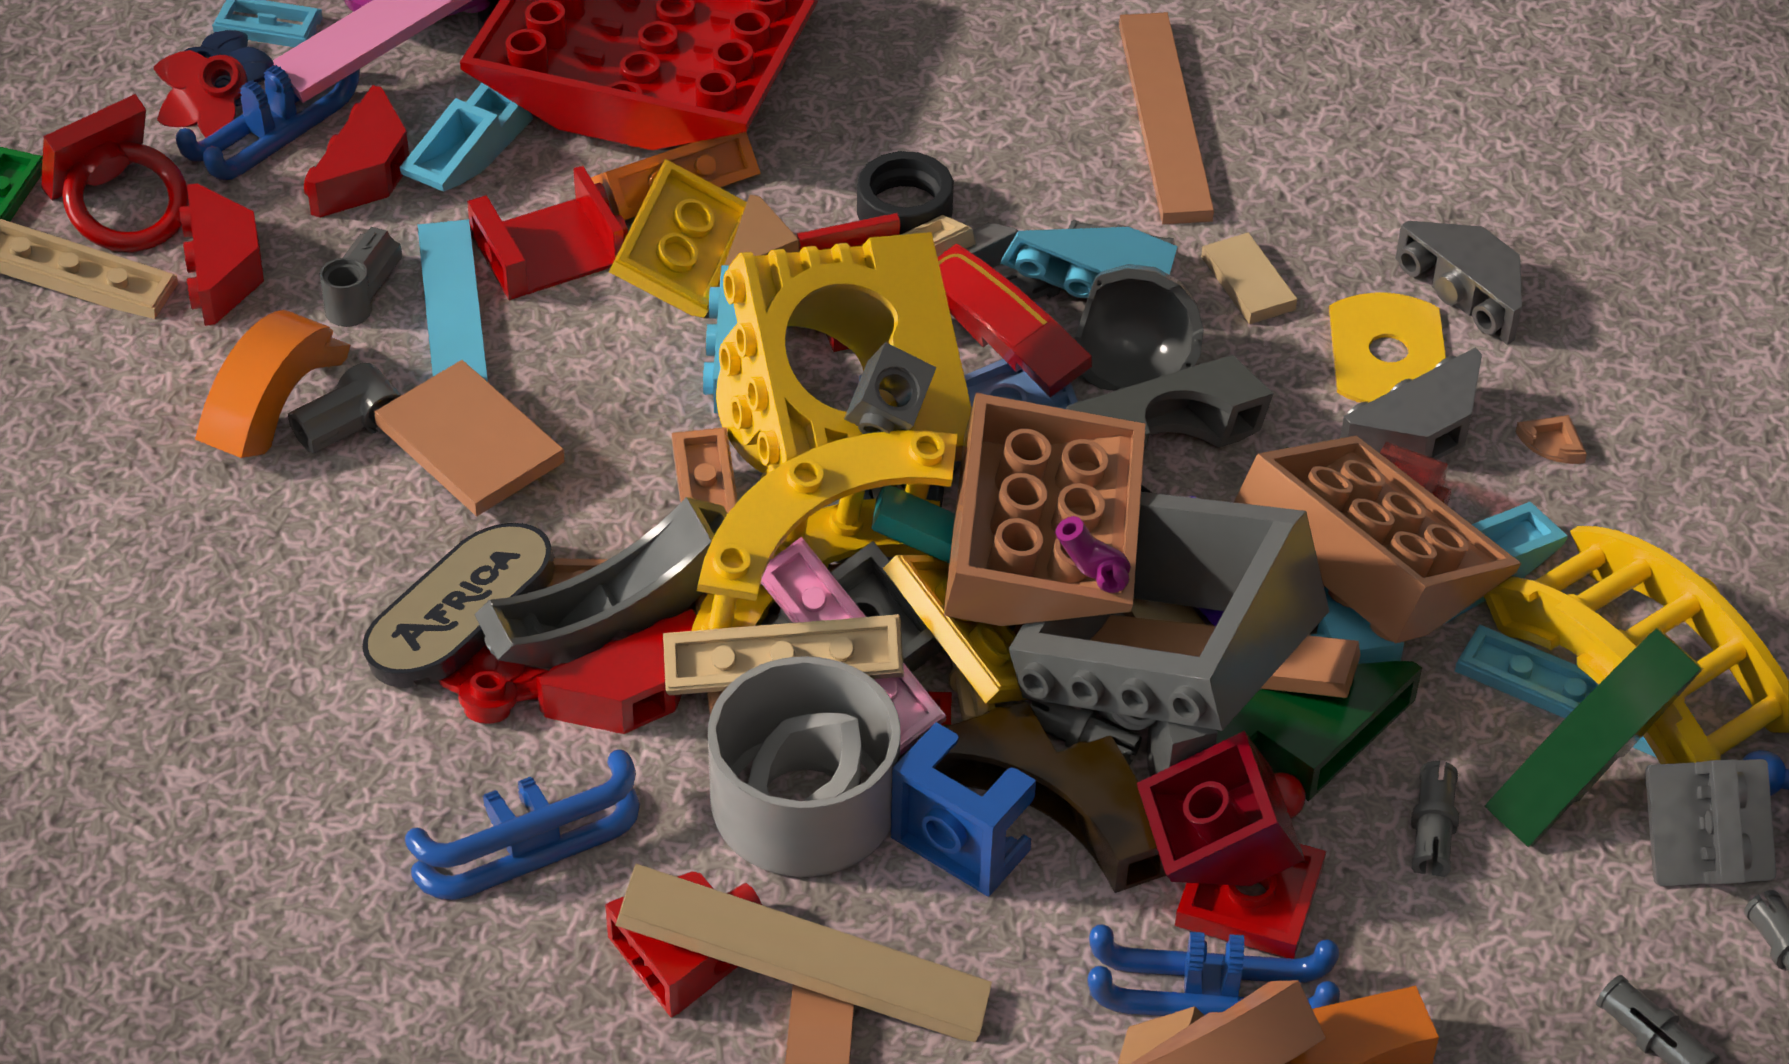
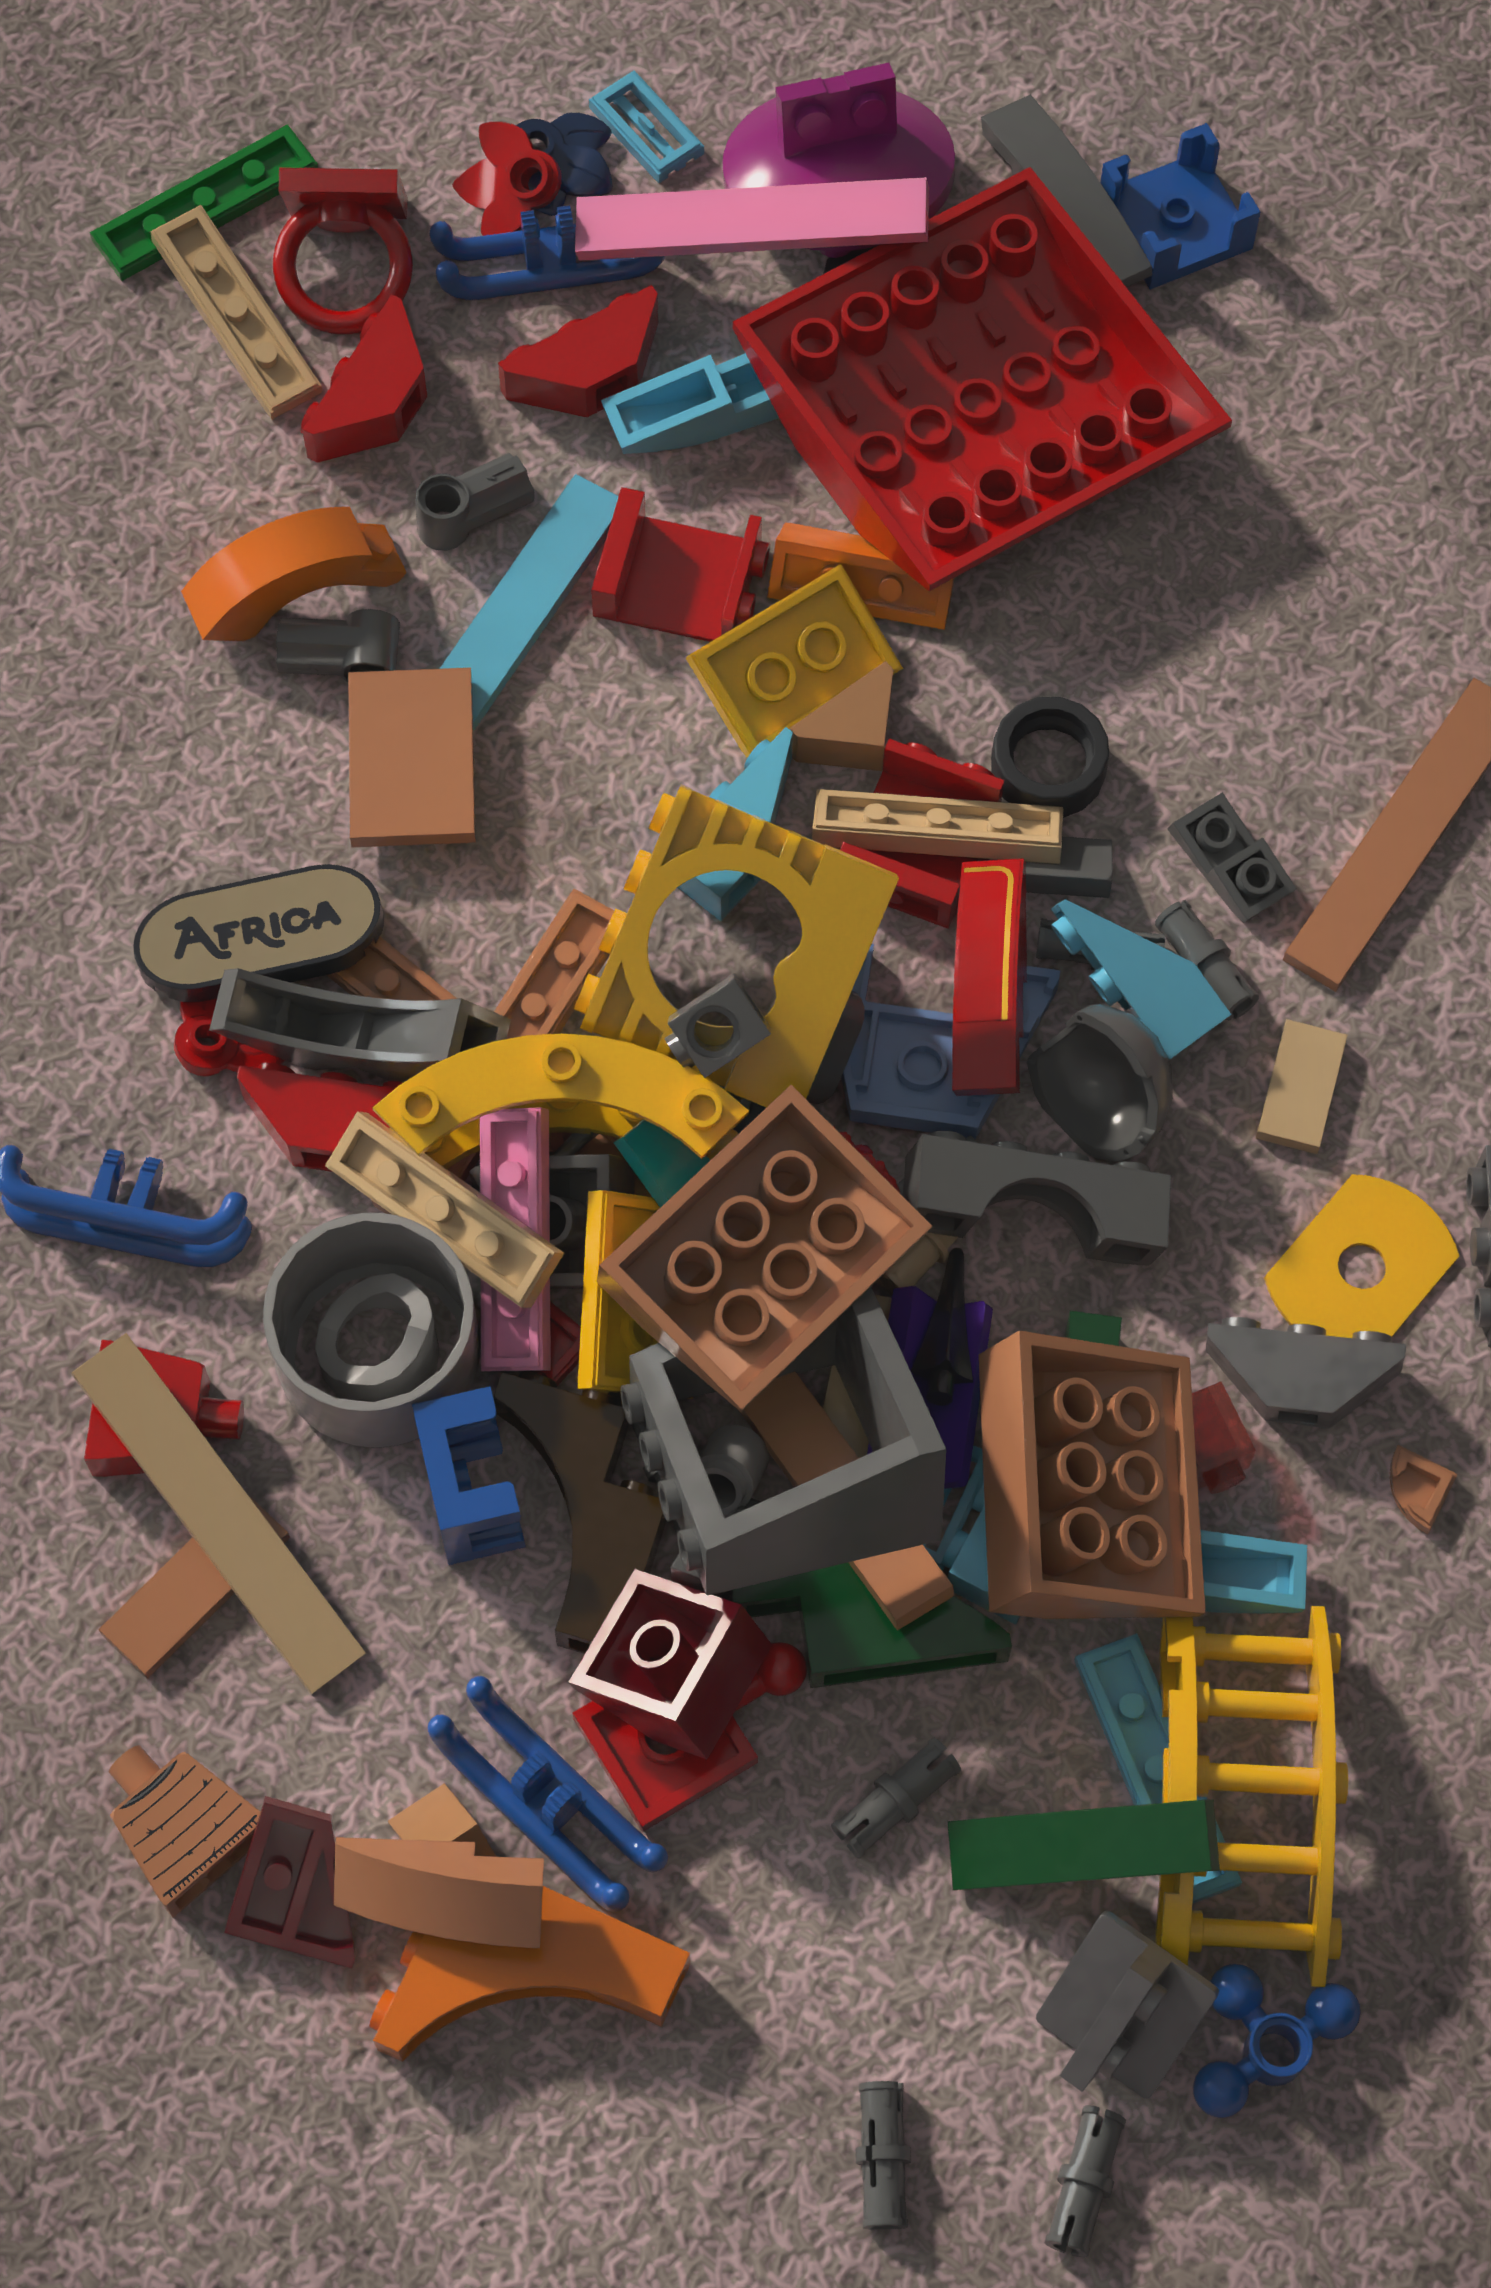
camera: 40 degrees right, 20 degrees up
(1093, 191) = (1230, 859): none -> dark grey slope
(1093, 556) = (734, 1338): magenta arm -> none

